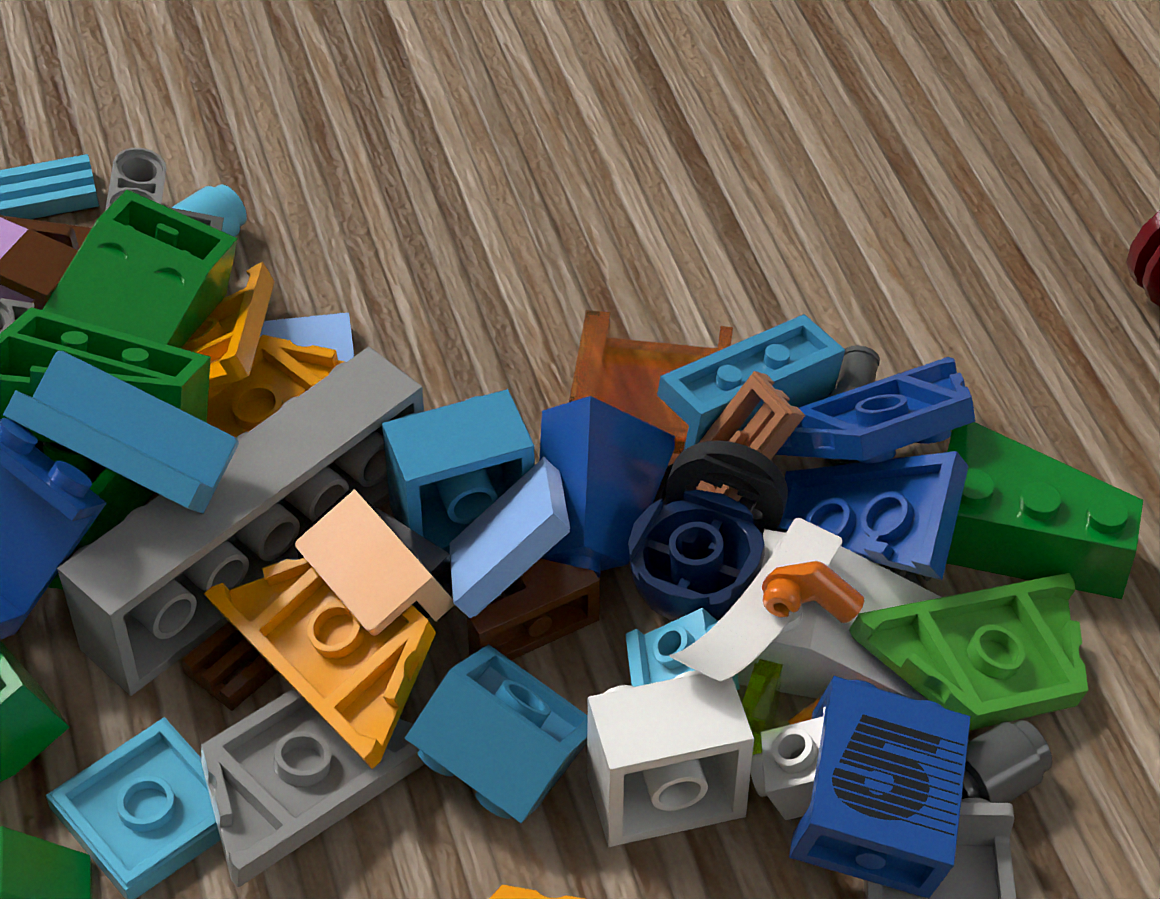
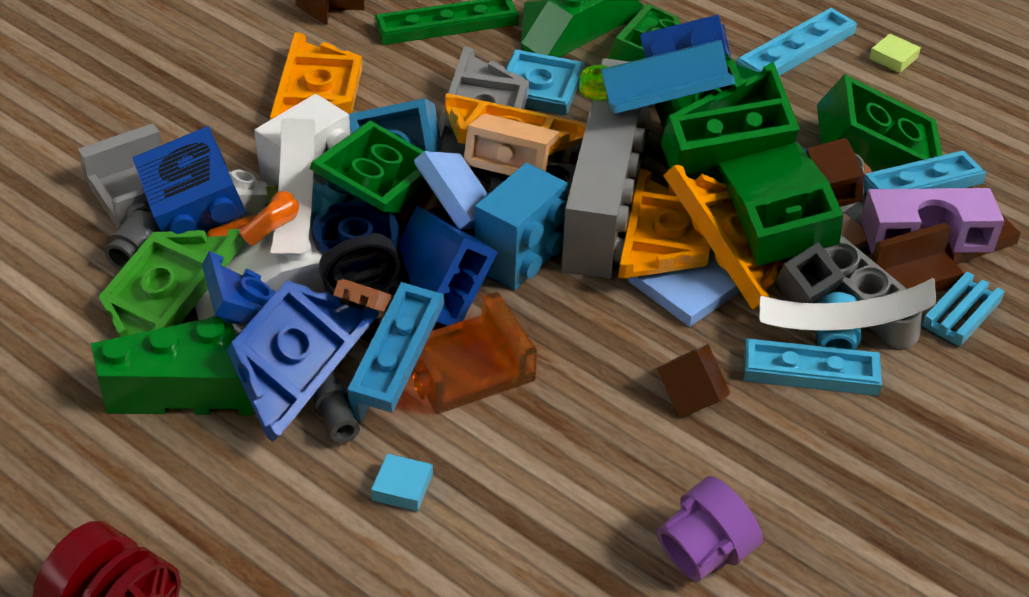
camera: 145 degrees right, 5 degrees down
(177, 550) = (592, 84): none -> clear neon green tile
(194, 178) = (848, 314): none -> white sticker
(283, 216) = (812, 367): none -> medium azure tile
(426, 240) = (694, 381): none -> reddish brown panel
(574, 87) = (709, 530): none -> medium lavender piece
(615, 603) = (373, 167): none -> green slope
(826, 296) = (402, 482): none -> medium azure tile

